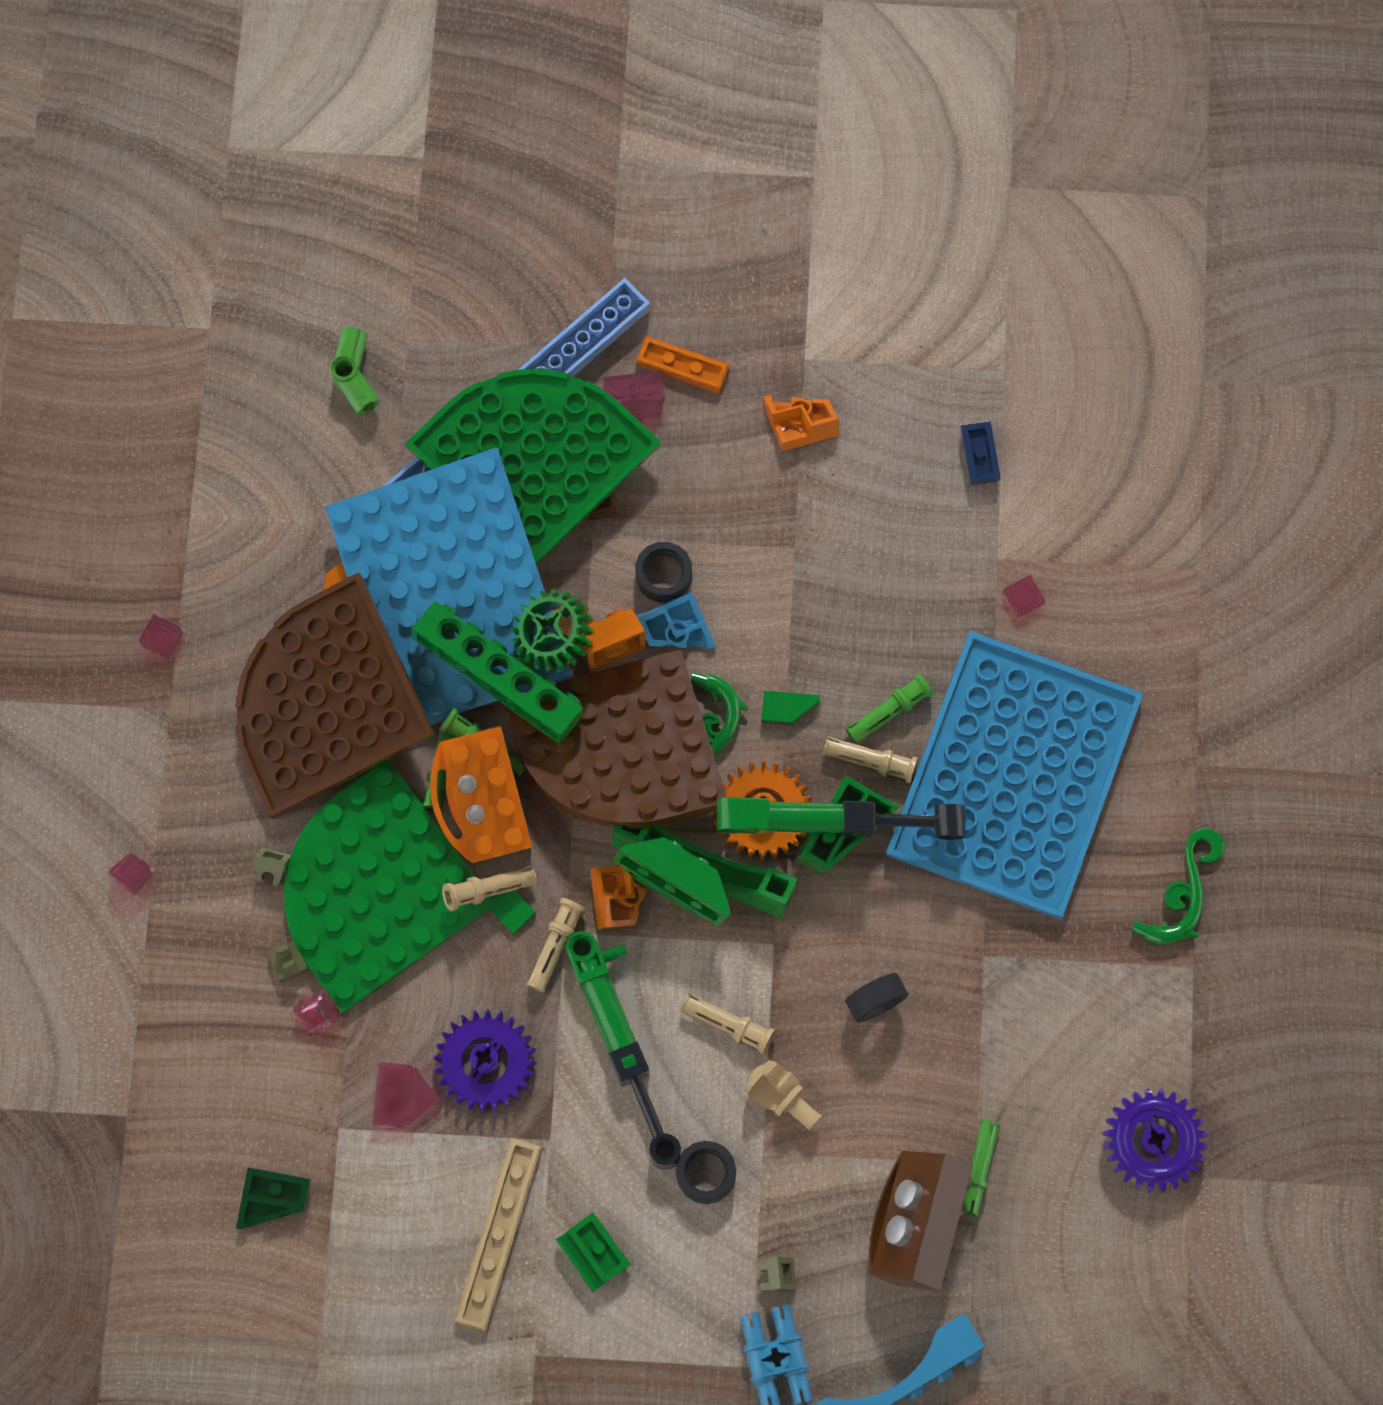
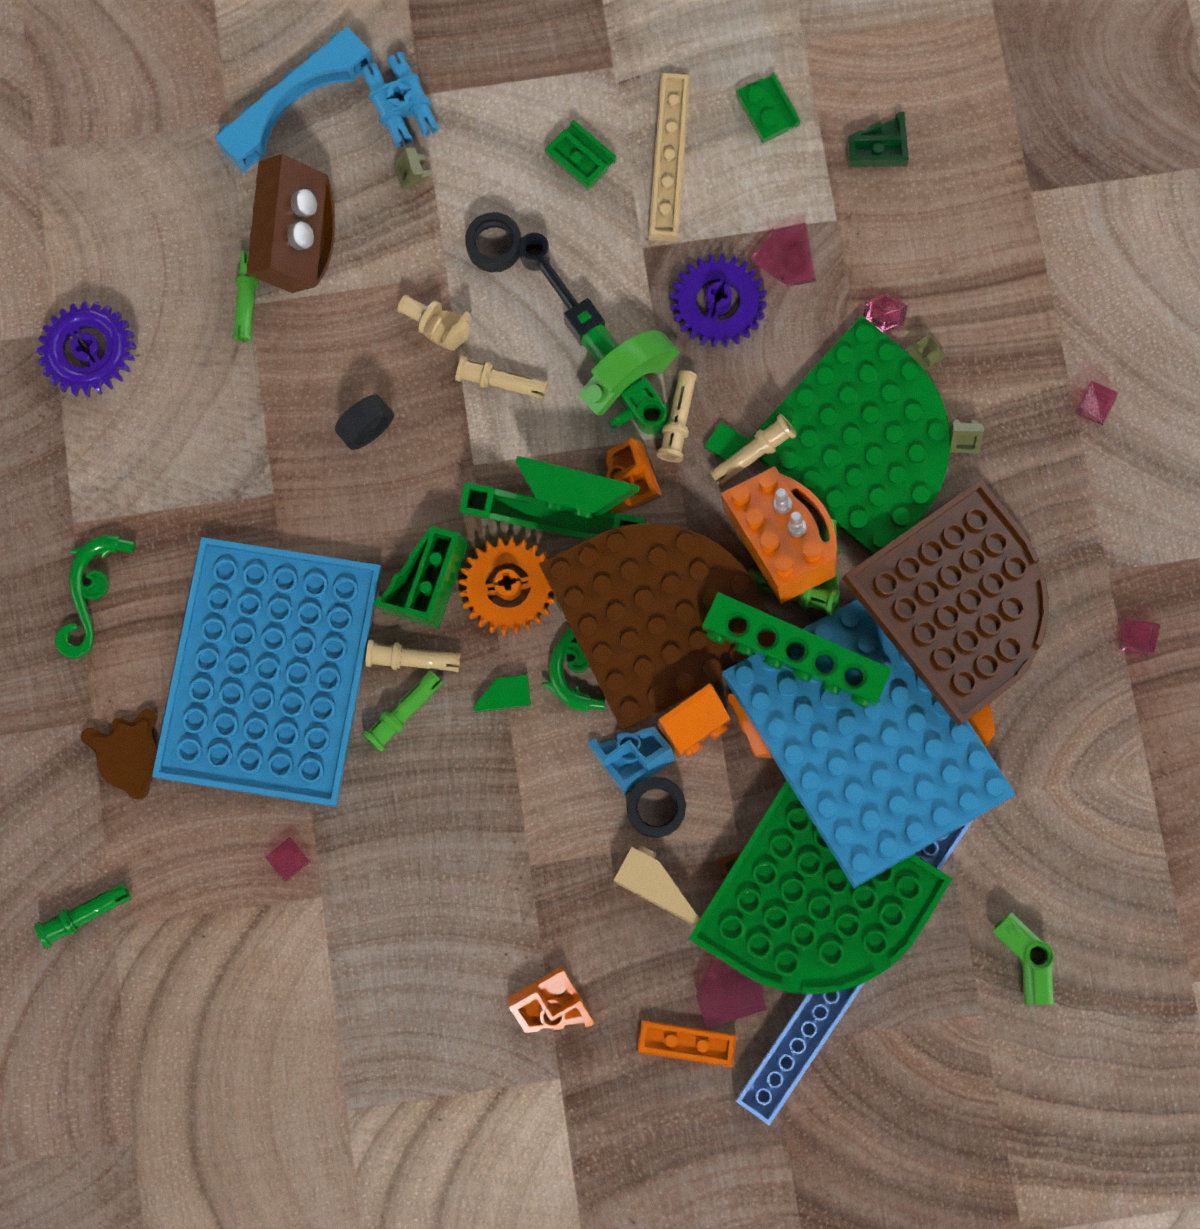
camera: 170 degrees right, 5 degrees up
(379, 1267) = (767, 108): none -> green plate
(568, 609) = (773, 706): green gear -> none
(594, 996) = (623, 365): none -> bright green arch
(685, 506) = (650, 880): none -> tan slope
(846, 819) = (417, 571): piece -> none
(980, 453) = (356, 1005): dark blue plate -> none
(1166, 724) = (127, 753): none -> reddish brown tile
(1239, 579) = (69, 921): none -> green pin

